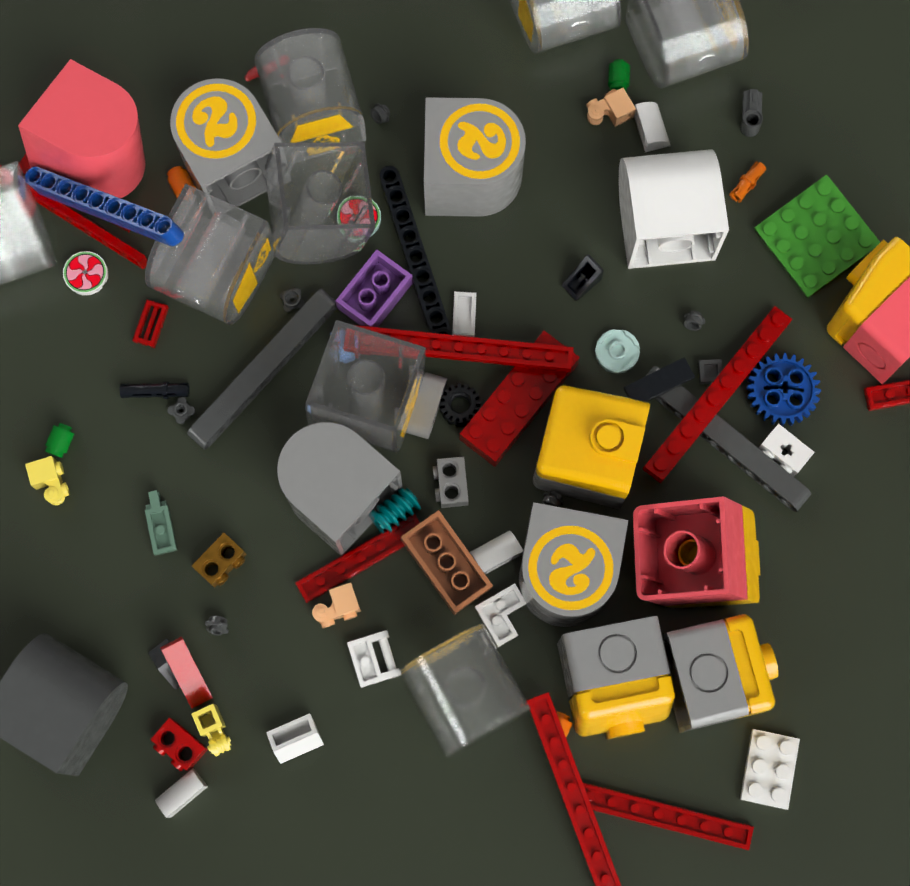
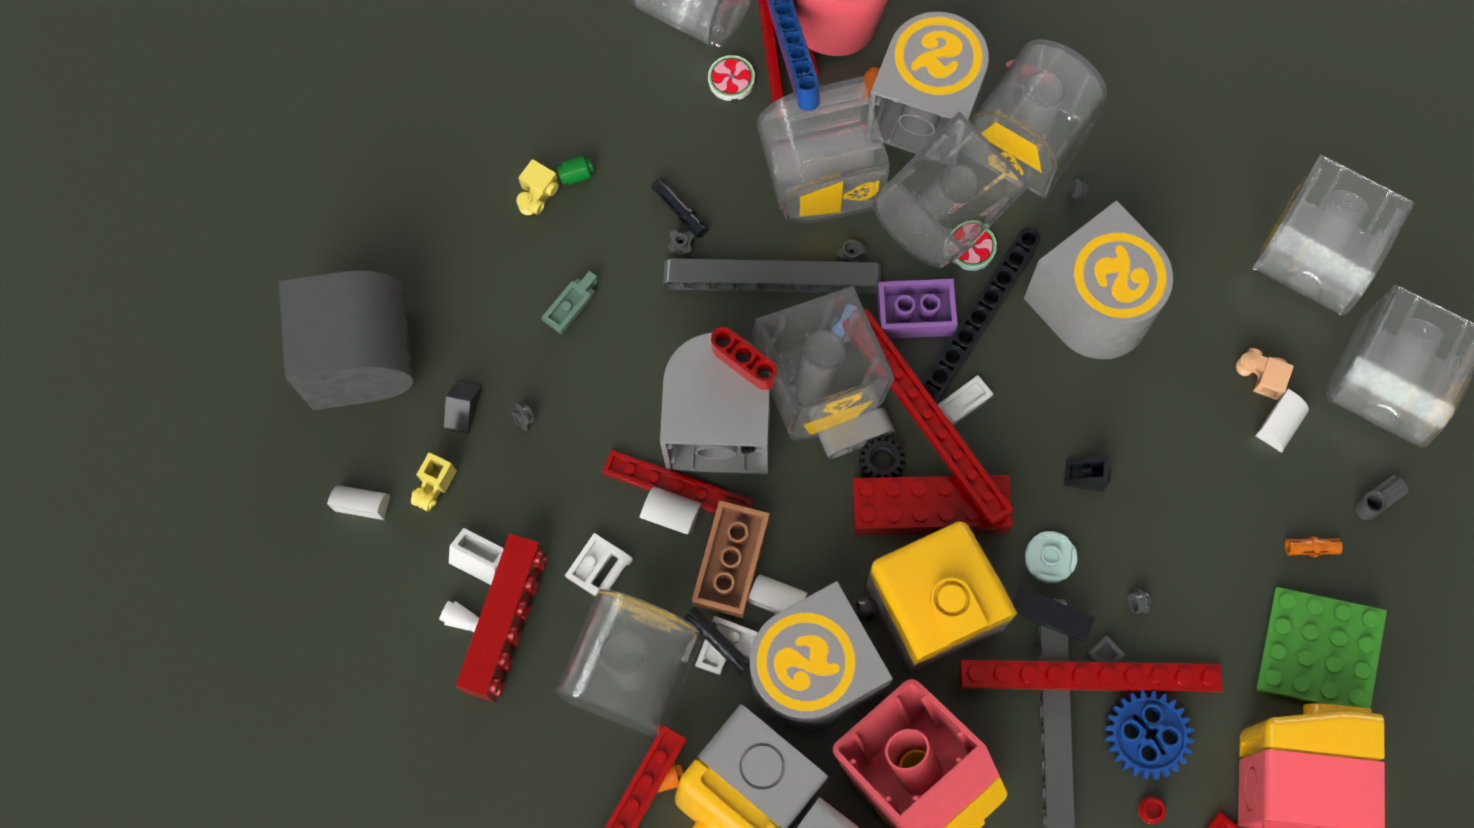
camera: 55 degrees right, 5 degrees down
(145, 341) = (733, 160): red tile -> none
(182, 740) = (405, 466): red brick -> none
(186, 672) = (461, 422): tile -> none
(214, 556) = (580, 366): pearl gold brick -> none
(327, 785) = (458, 617): none -> white cone
(335, 427) = (739, 347): none -> red beam
(343, 606) = (624, 504): light nougat brick -> none
(356, 755) = (502, 618): none -> red brick
(375, 576) = (671, 510): none -> white brick
(394, 509) = (741, 479): teal piece -> none
(457, 482) = (812, 512): light grey brick -> none
(495, 617) = (717, 639): none -> black pin
(619, 75) = (1302, 354): green brick -> none
(672, 208) = (1220, 494): white brick -> none
(797, 452) = (1100, 770): white brick -> none
(831, 429) = (1152, 810): none -> red plate

